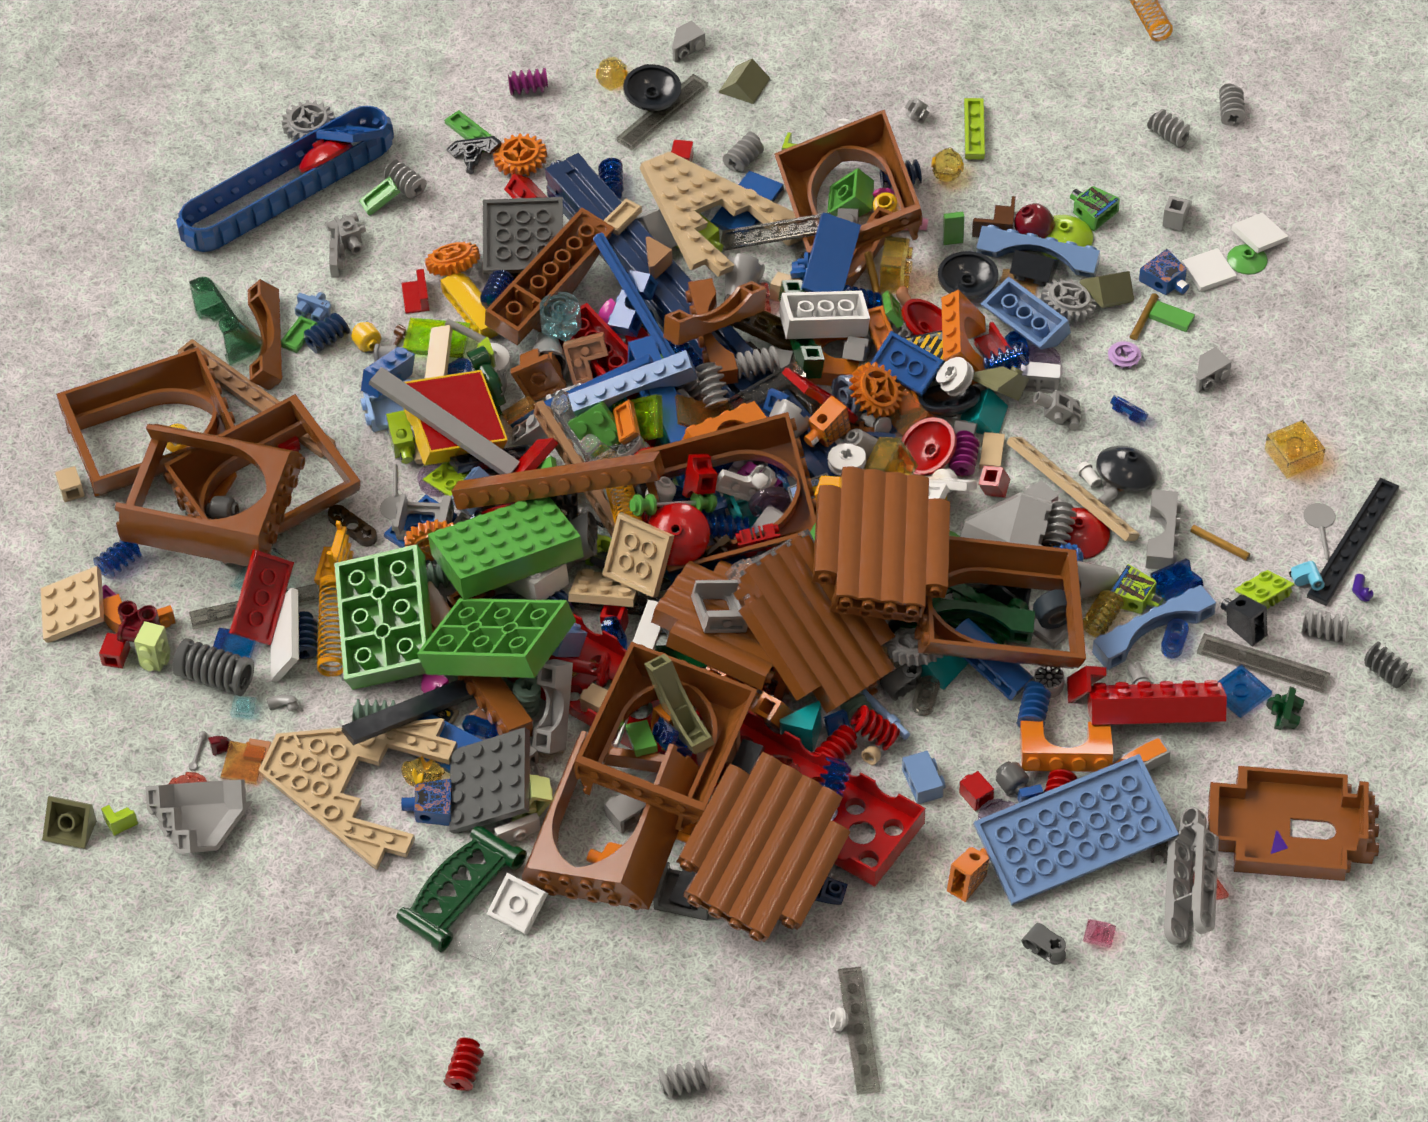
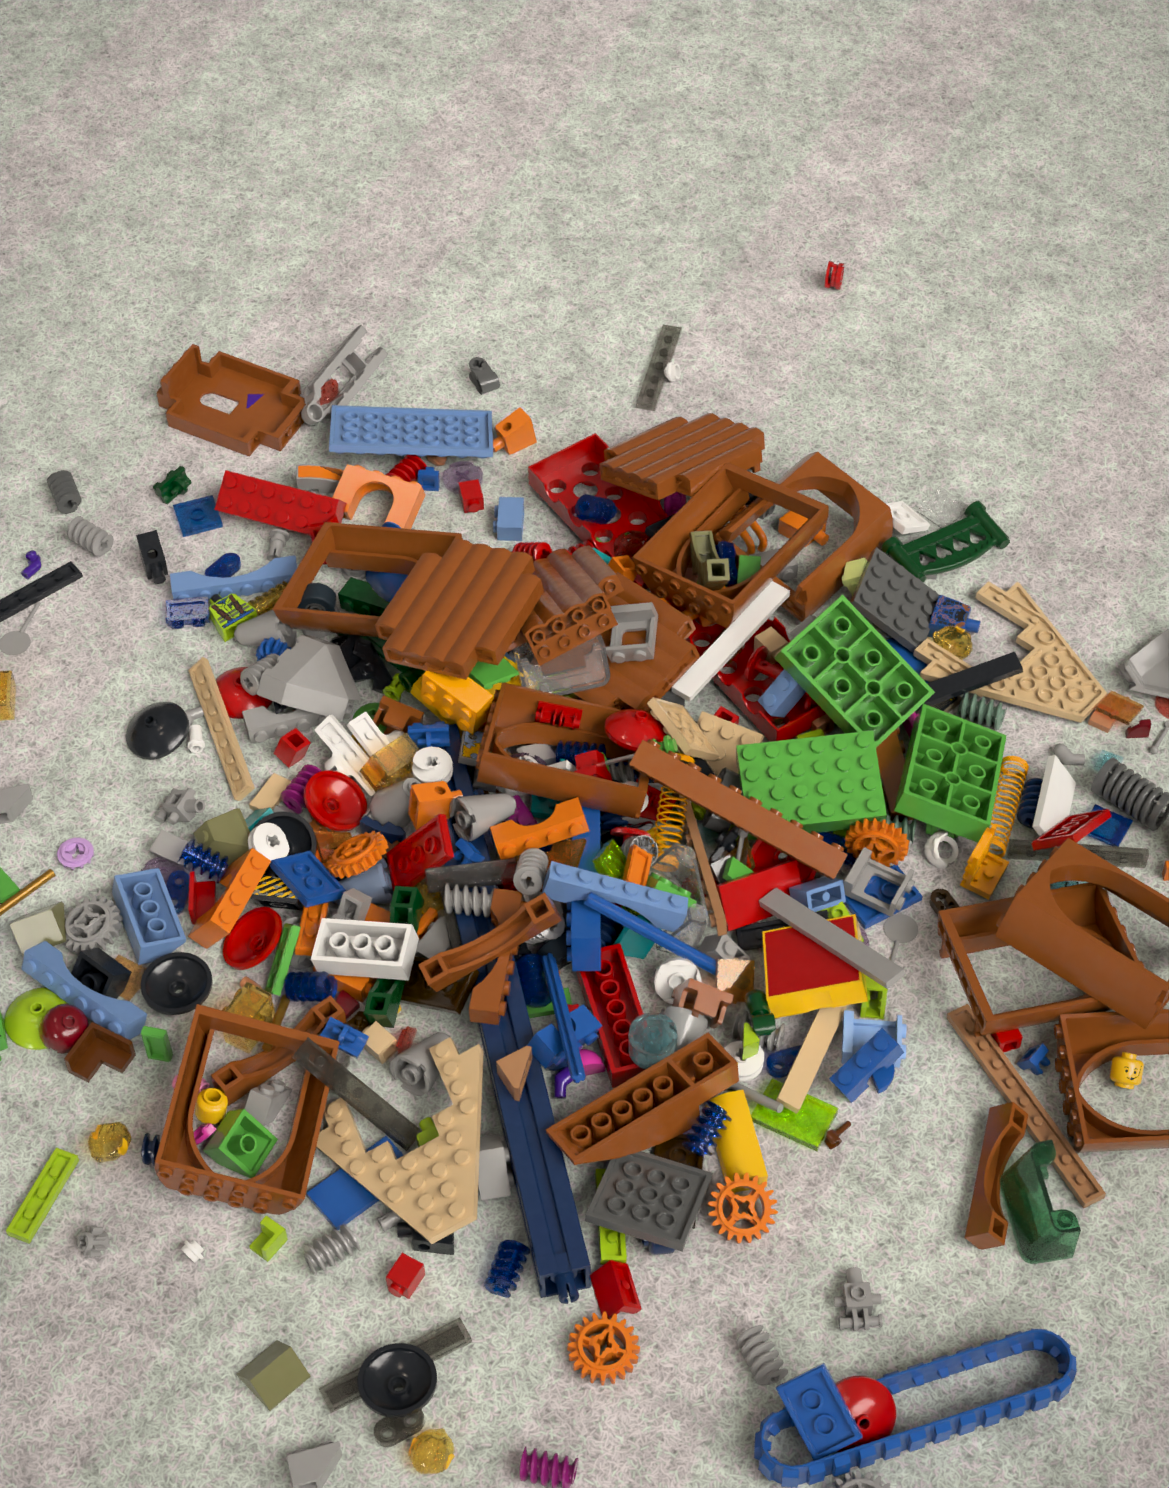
camera: 160 degrees left, 0 degrees up
(294, 337) = (953, 1179): bright green tile -> none
(316, 305) = (925, 1205): medium blue hips -> none
(324, 331) = (920, 1156): dark blue piece -> none
(336, 250) = (883, 1260): light grey wing -> none
(365, 336) = (876, 1139): yellow head -> none
(379, 196) = (802, 1342): bright green tile -> none
(380, 351) = (859, 1112): light grey bush -> none
(415, 294) = (799, 1186): red panel -> none
(464, 1064) = (985, 416): red piece -> none
(465, 126) = (650, 1423): bright green tile -> none
(473, 149) = (659, 1380): piece -> none
(580, 351) = (634, 1002): nougat panel -> none
(612, 626) = (733, 702): clear blue plate -> none
(623, 215) = (528, 1153): tan tile -> none
(684, 1078) = (811, 362): light grey piece -> none
(721, 545) = (595, 726): dark brown piece -> none
(831, 254) = (320, 1009): blue tile -> none
(1011, 777) = (436, 495): dark grey head -> none
(1099, 933) = (435, 375): clear pink slope -> none
(1122, 405) = (112, 790): clear blue plate -> none
(1161, 548) = (179, 644): light grey arch -> none
(1220, 542) = (121, 643): pearl gold bar -> none
(1263, 663) = (168, 535): clear smoke tile -> none
(1266, 588) = (115, 586): lime hinge -> none
(1307, 573) = (68, 585): medium azure piece -> none

